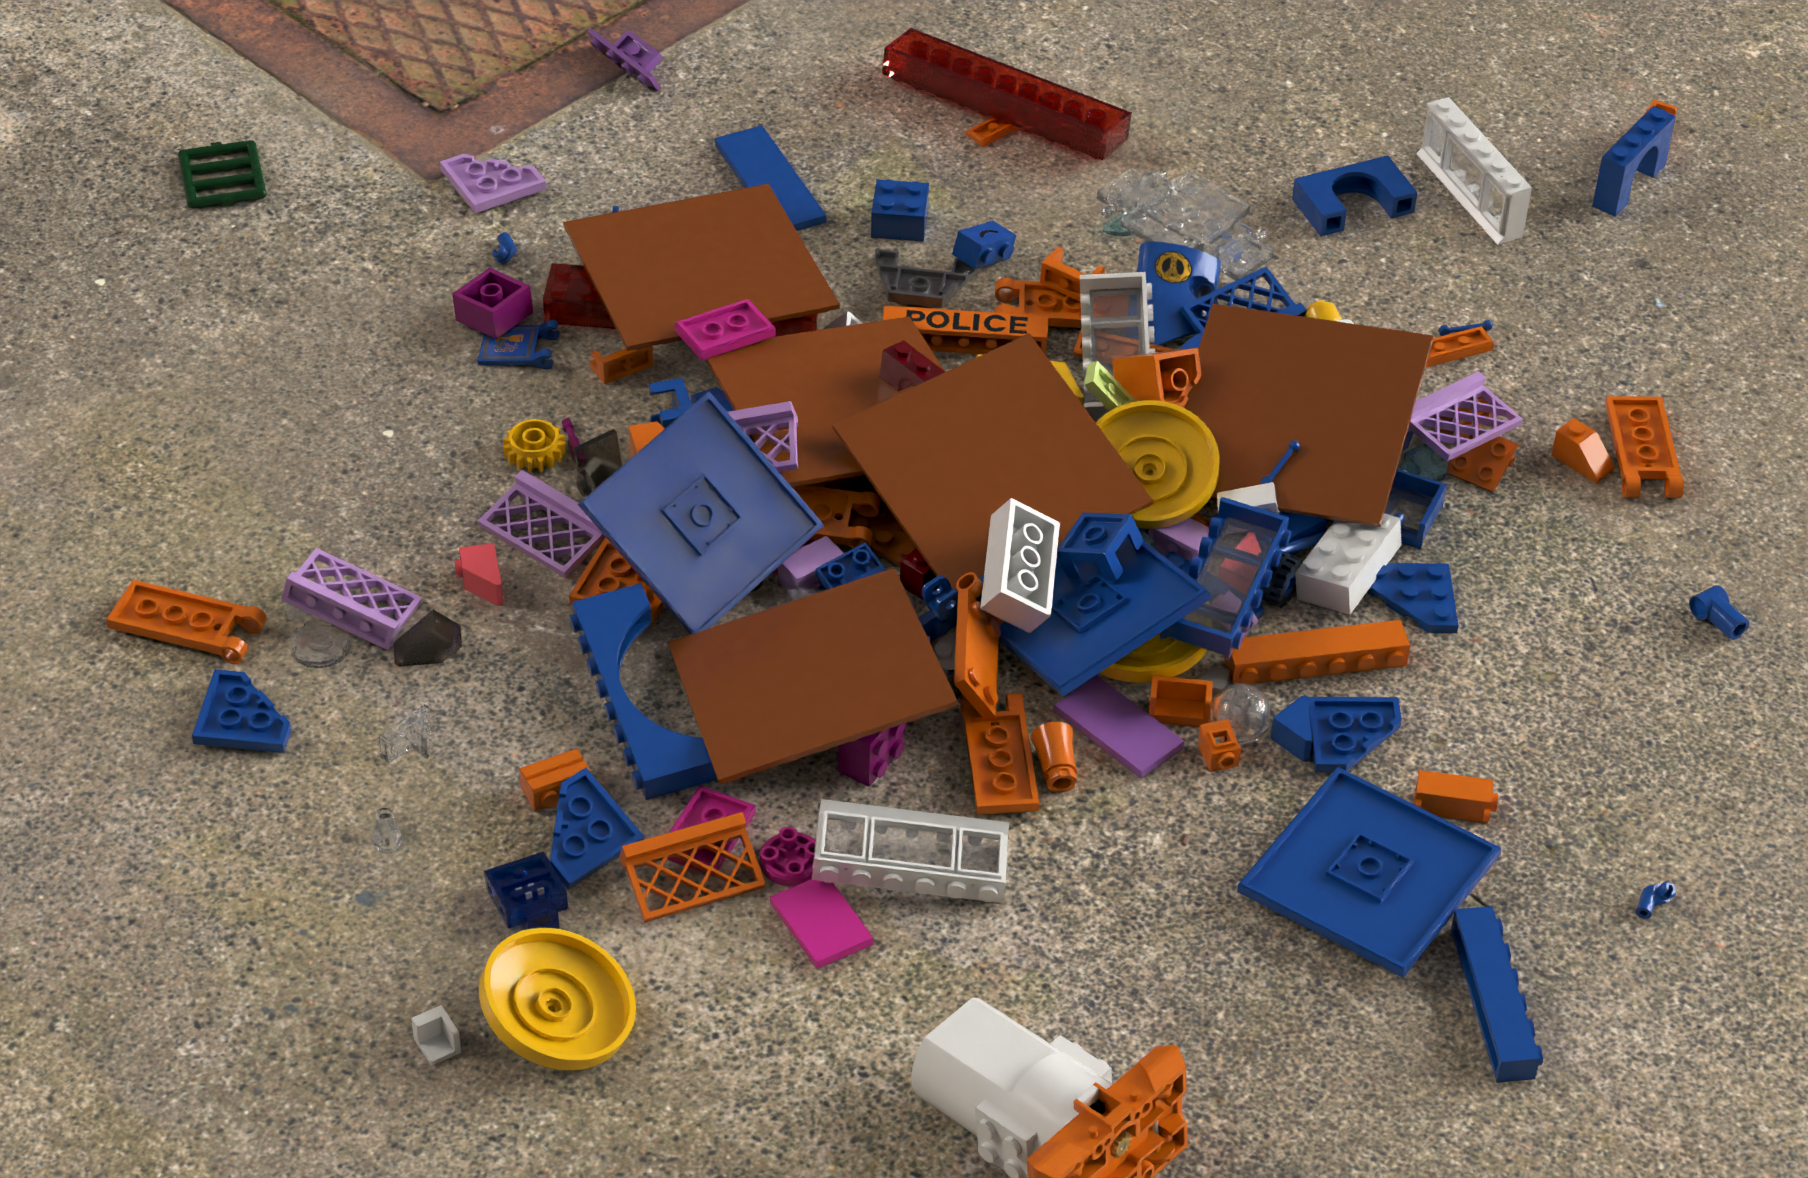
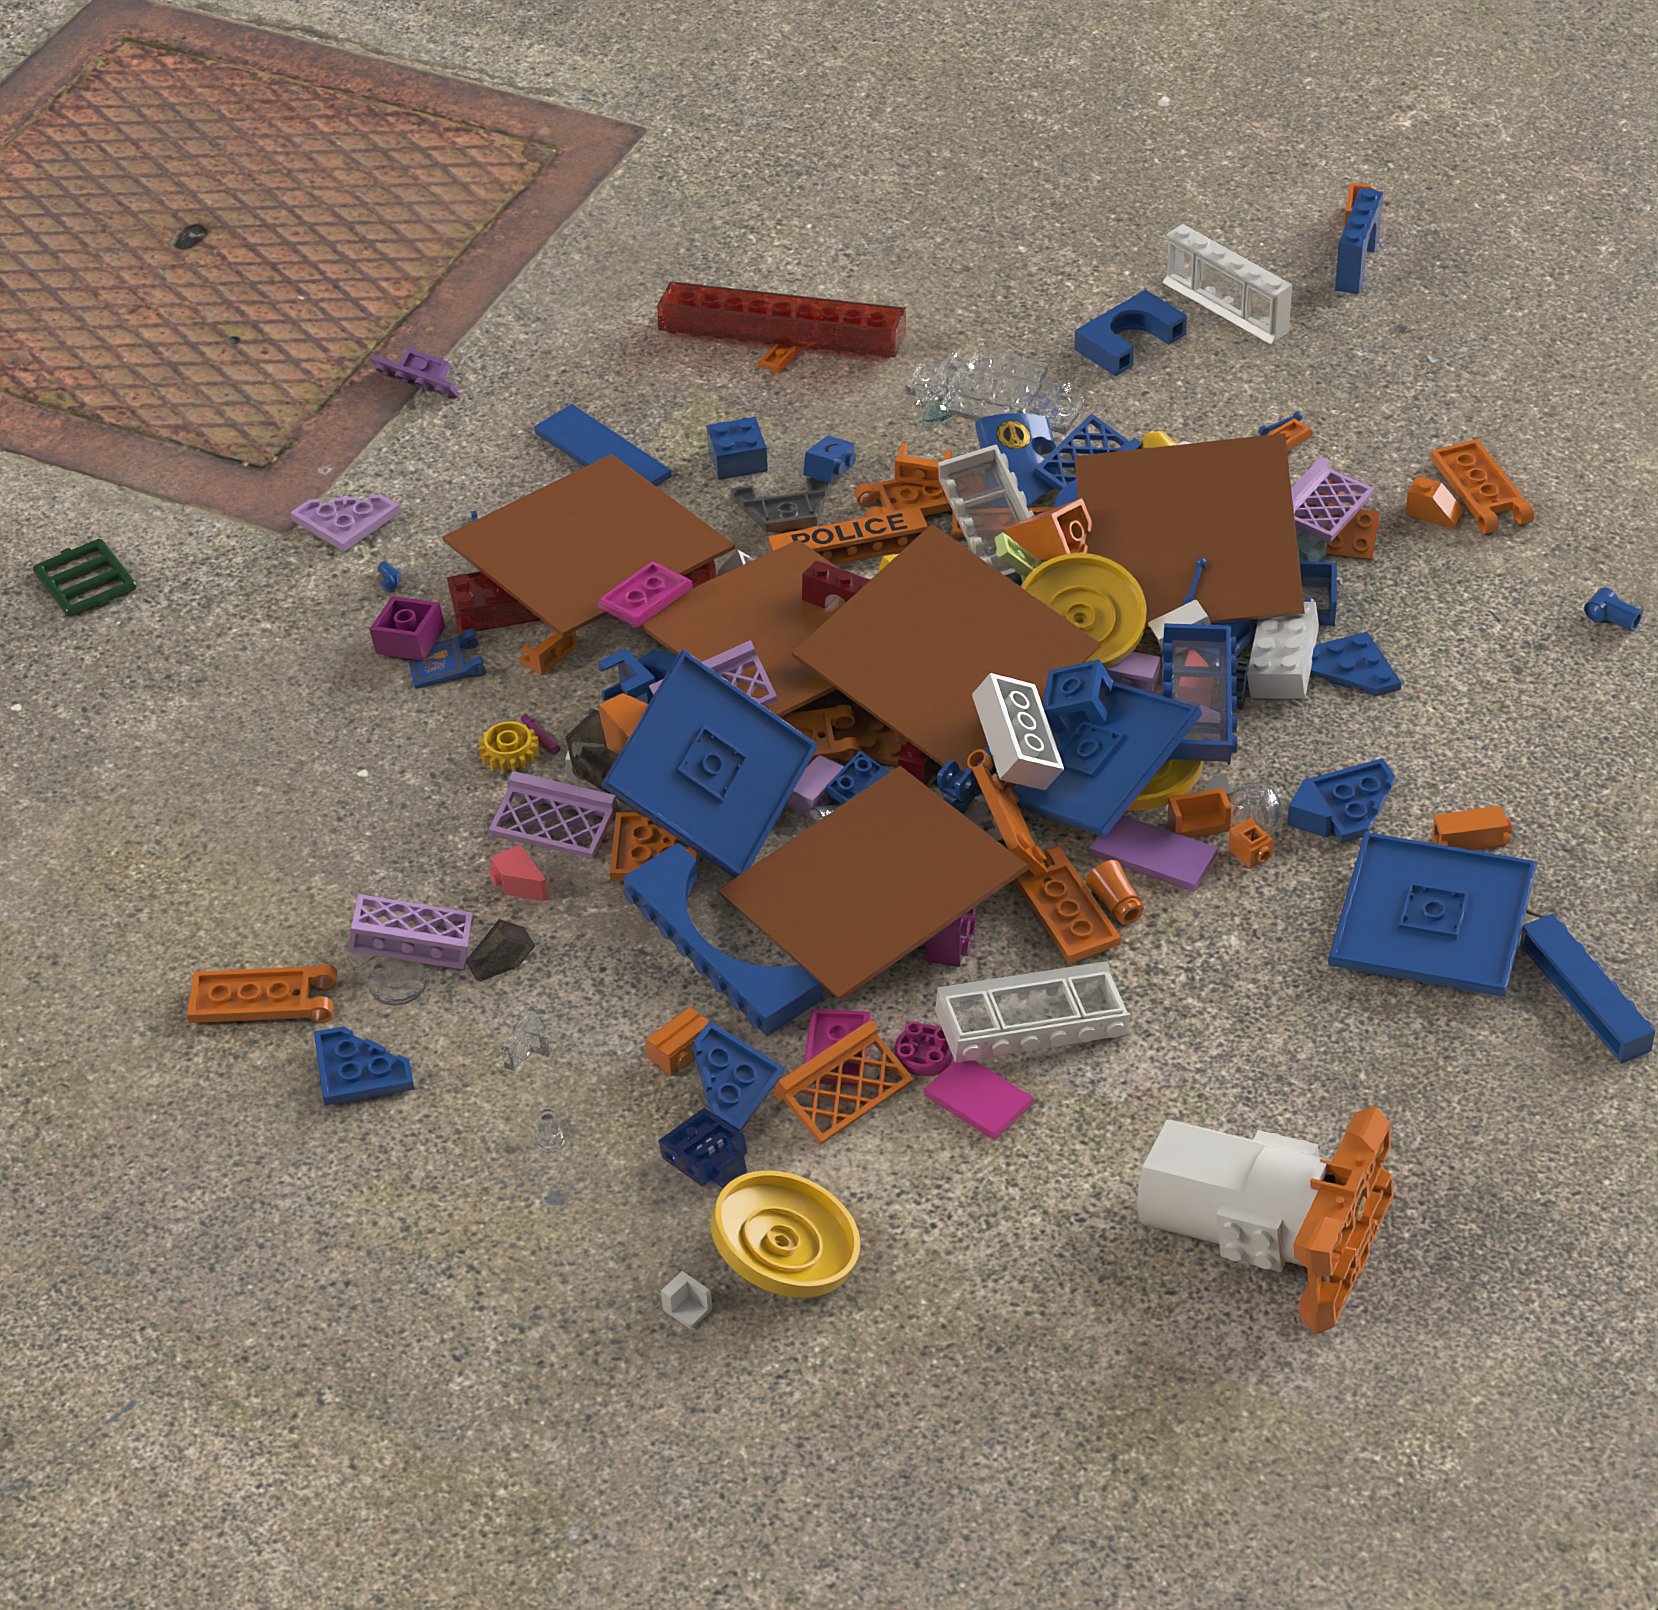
camera: 15 degrees left, 0 degrees up
(1319, 652) = (1297, 738): orange brick -> none

